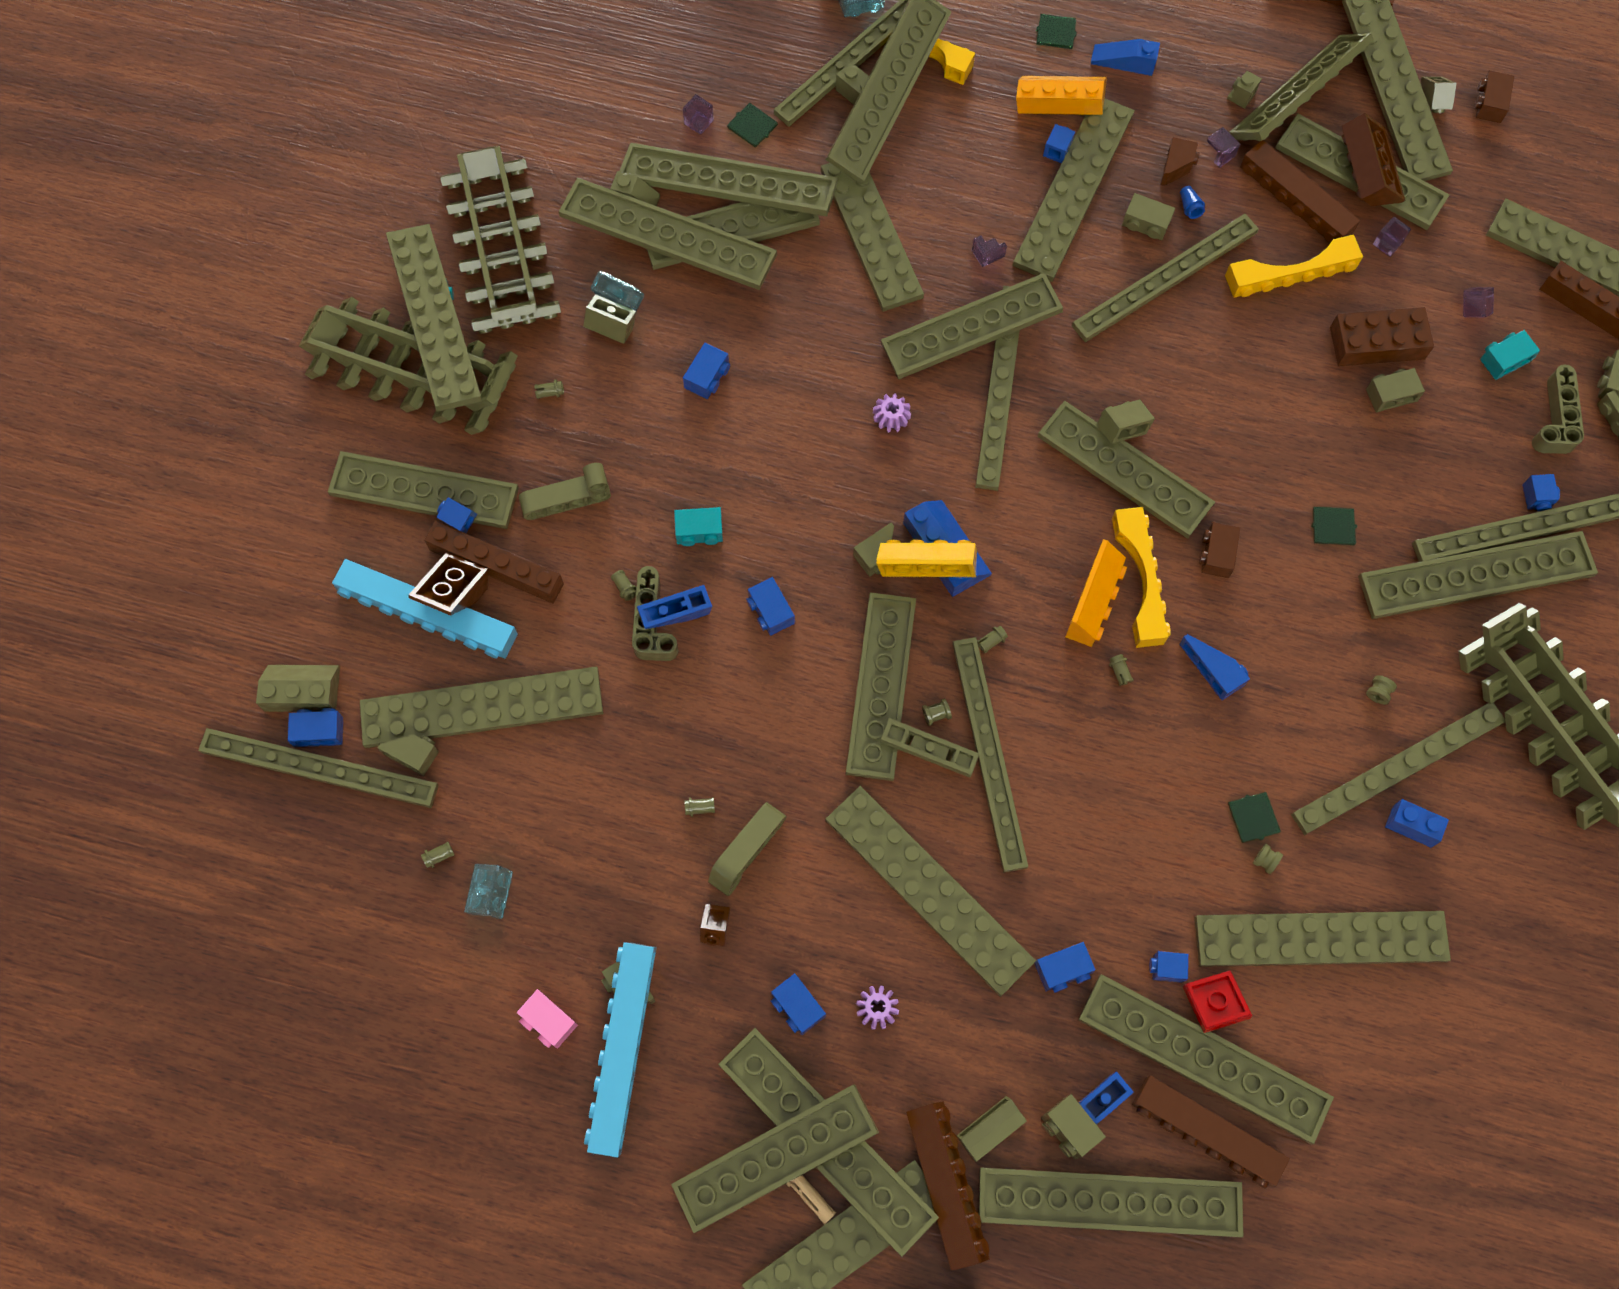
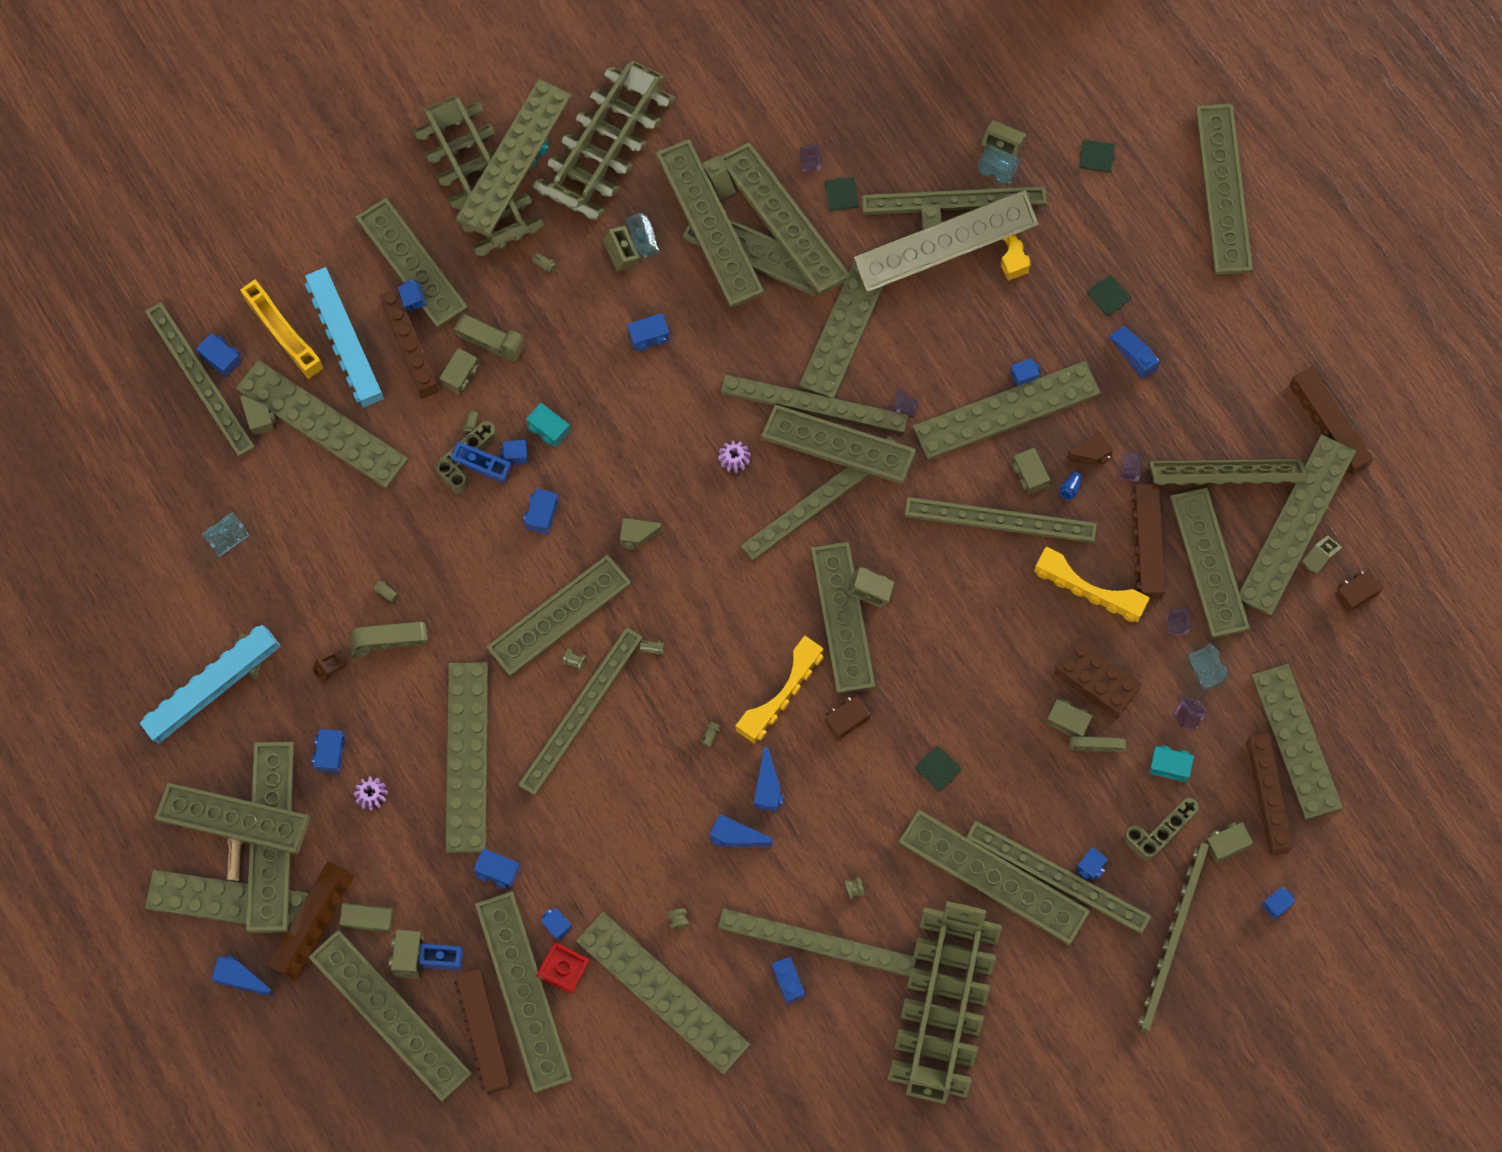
camera: 45 degrees right, 0 degrees up
(298, 687) = (232, 322): olive slope -> none
(319, 647) = (281, 330): none -> yellow arch
(437, 855) = (217, 488): olive pin -> none
(451, 585) = (367, 336): reddish brown slope -> none
(547, 1019) = (188, 633): bright pink brick -> none
(567, 547) = (459, 372): none -> olive brick
(693, 574) = (514, 452): none -> blue brick
(910, 313) = (814, 404): none -> olive plate
(927, 559) = (652, 562): yellow slope -> none
(929, 747) = (546, 675): olive hinge -> none
(935, 522) = (683, 567): blue slope -> none
(1061, 95) = (1060, 340): light orange slope -> none
(1097, 594) = (739, 675): light orange slope -> none
(1231, 739) = (735, 835): none -> blue slope
(1244, 89) = (1187, 439): olive brick -> none
(1254, 817) = (698, 891): clear green piece -> none
(1372, 161) = (1216, 562): reddish brown slope -> none
(1437, 390) = (1097, 744): none -> olive beam
(1452, 251) = (1208, 667): none -> clear light blue bracket

